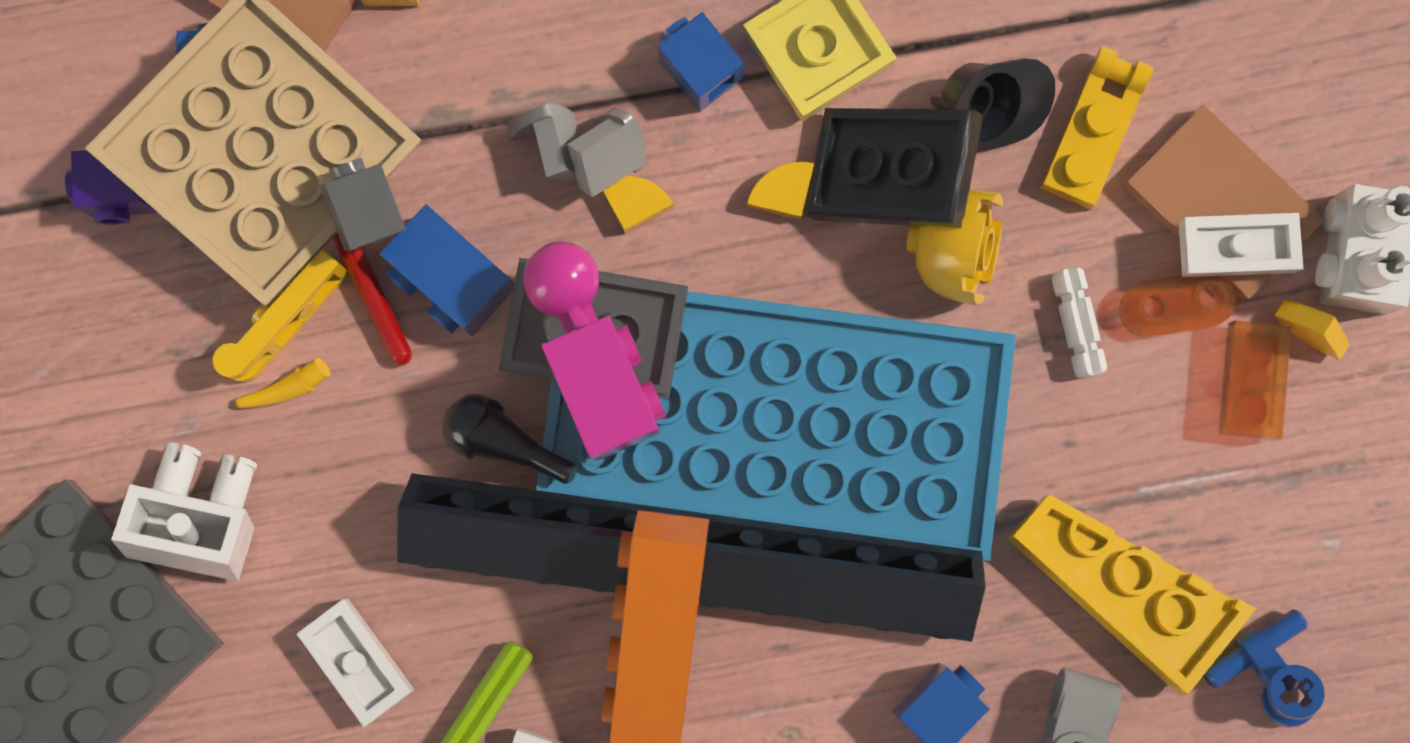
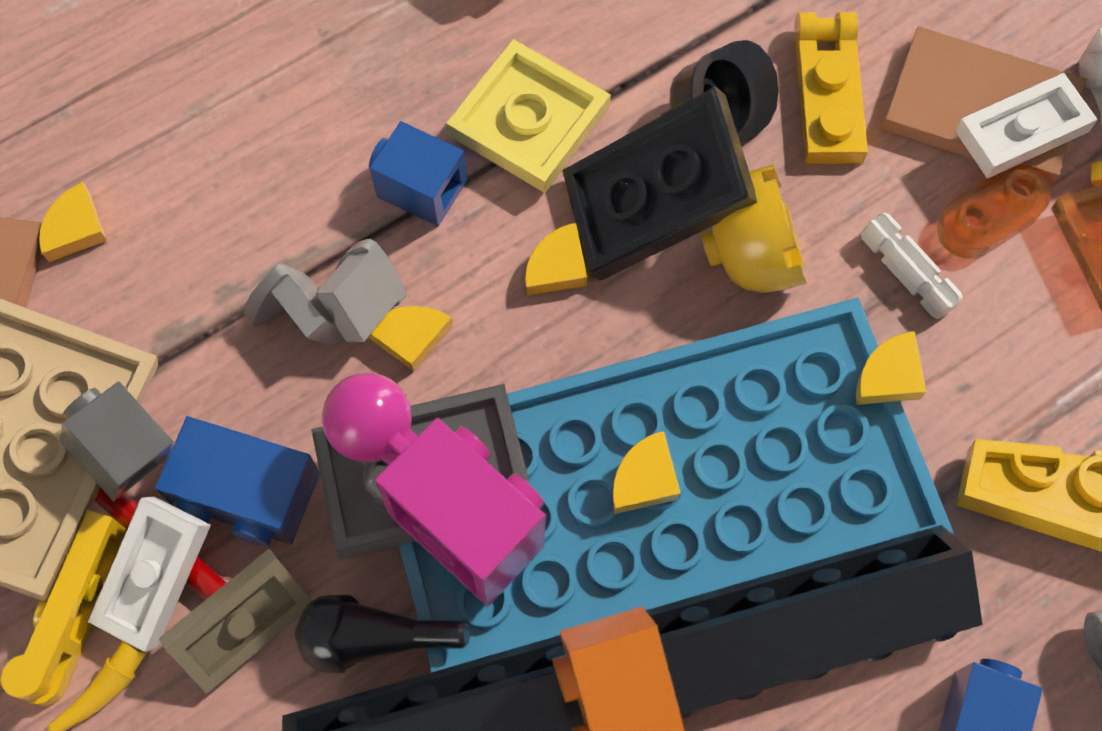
camera: 25 degrees left, 15 degrees down
(352, 317) = (149, 573): none -> white plate
(405, 383) = (236, 621): none -> dark tan plate
(766, 410) = (645, 476): none -> yellow tile
(1007, 412) = (892, 372): none -> yellow tile

